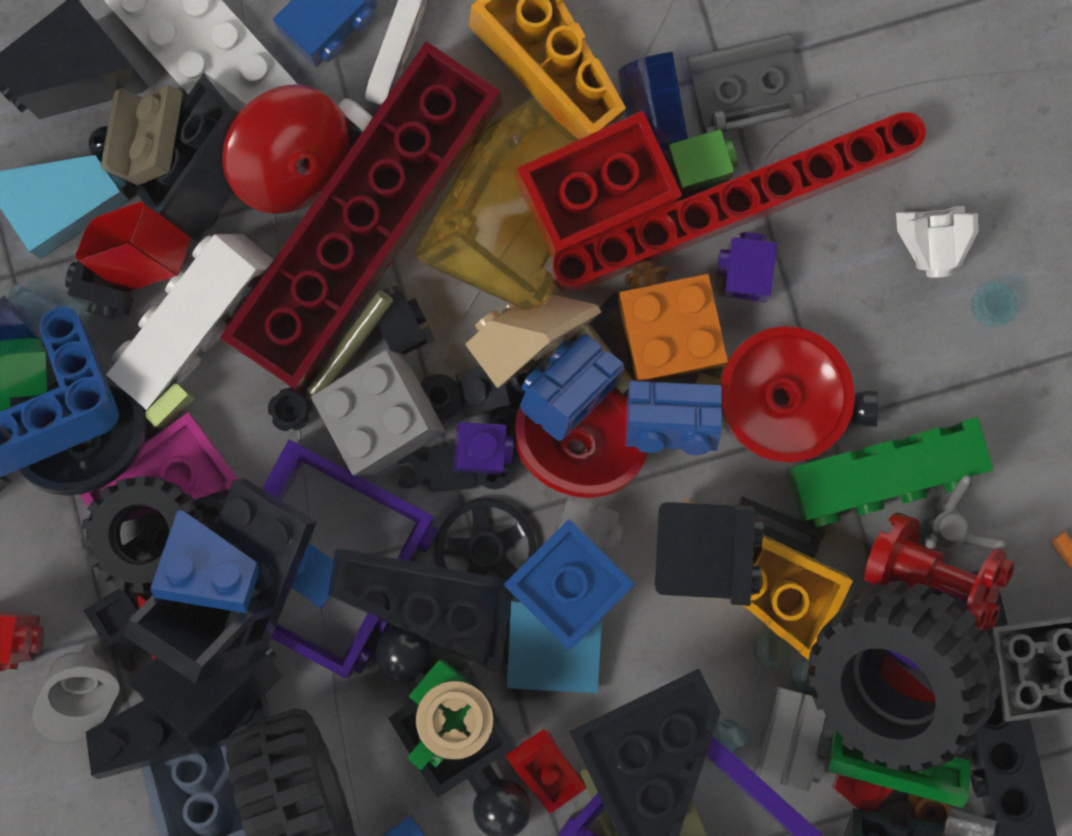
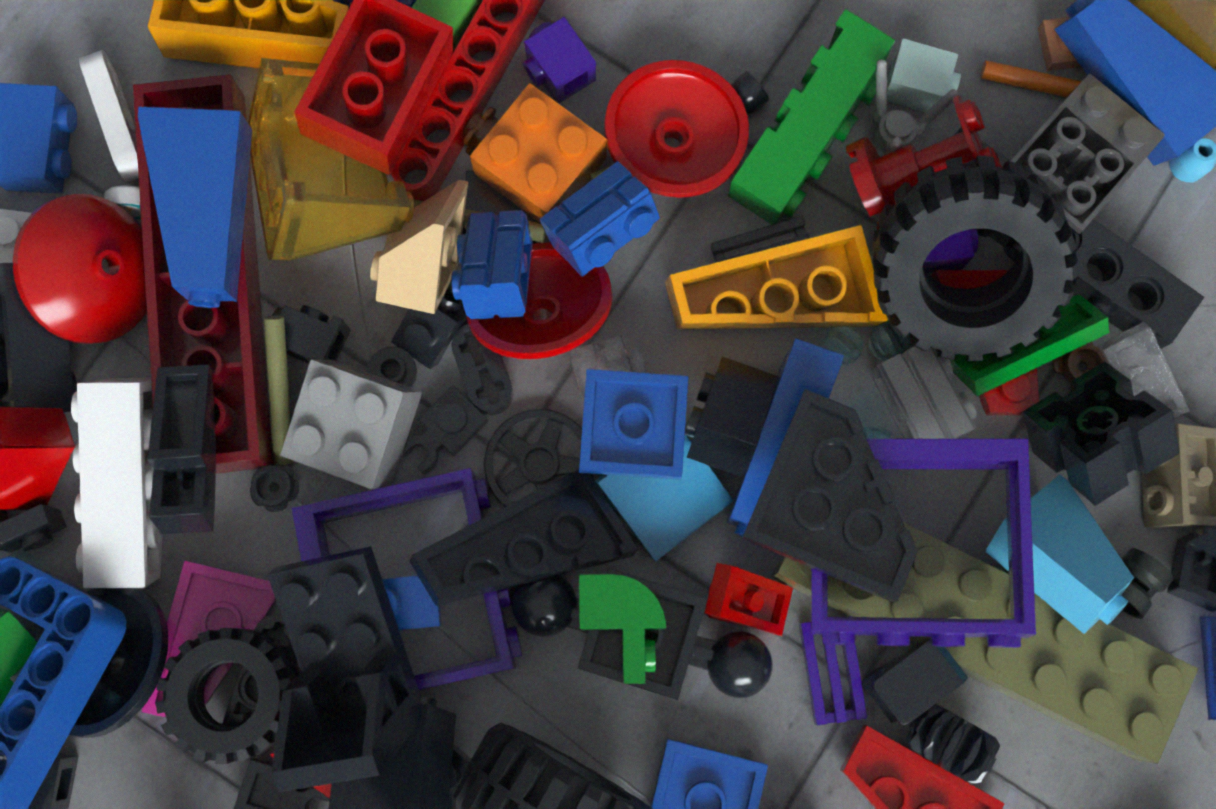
camera: 45 degrees left, 5 degrees down
(169, 406) = (164, 569): yellowish green tile -> none
(203, 568) = (304, 672): blue wing -> none
(248, 341) = (183, 450): none -> black slope
(406, 166) = (199, 193): none -> blue slope
(431, 720) = (656, 595): tan gear -> none
(482, 448) = (463, 376): dark purple brick -> none
(644, 636) = (732, 417): none -> black brick
(708, 551) = (726, 295): black bracket -> none
(714, 652) = (801, 369): none -> blue slope
(1003, 505) = (921, 75): none -> light aqua brick

